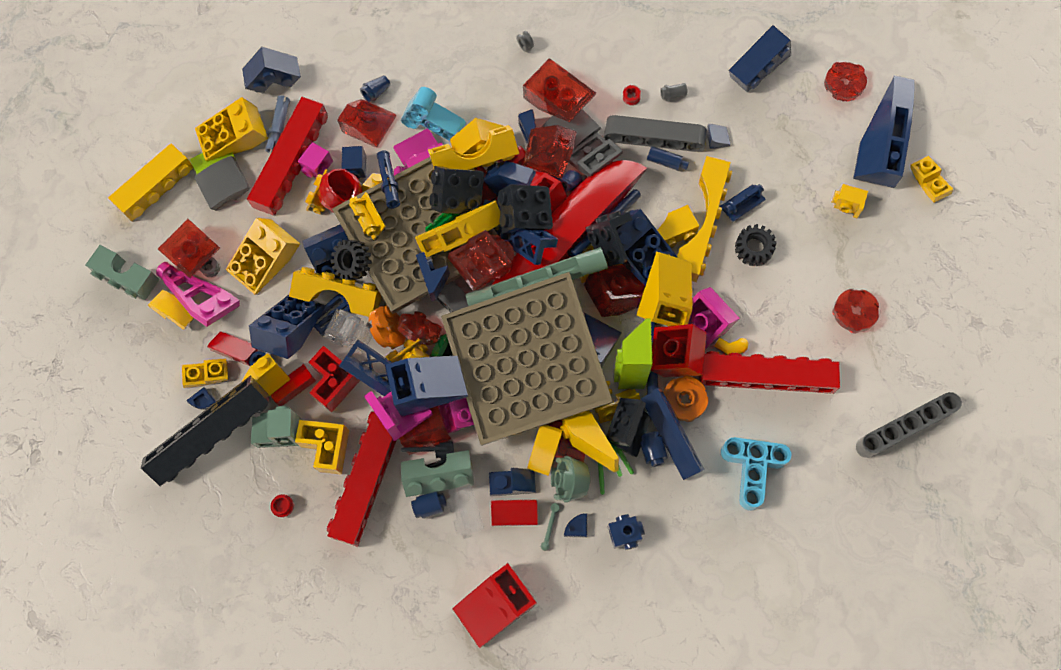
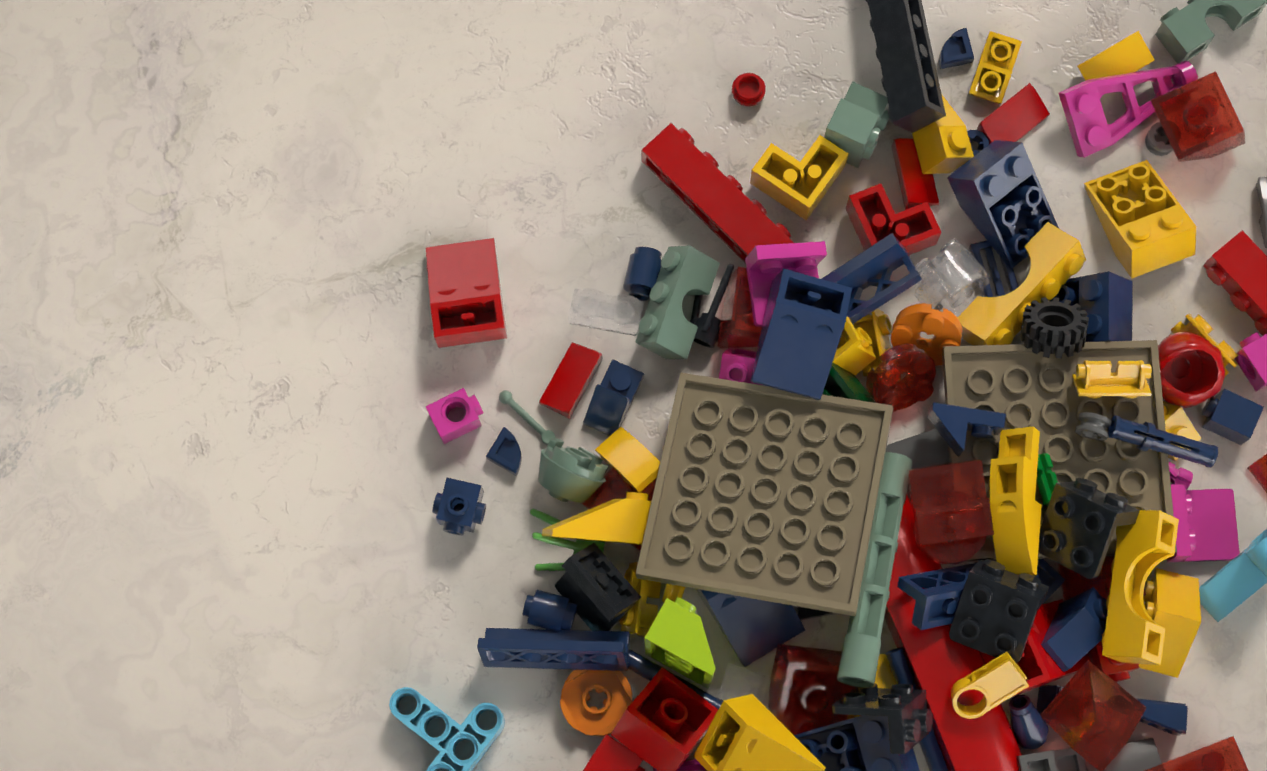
camera: 115 degrees right, 5 degrees up
(398, 214) = (1093, 426): none -> dark grey bush
(566, 193) = (996, 680): none -> yellow piece
(584, 567) = (452, 430): none -> dark pink brick

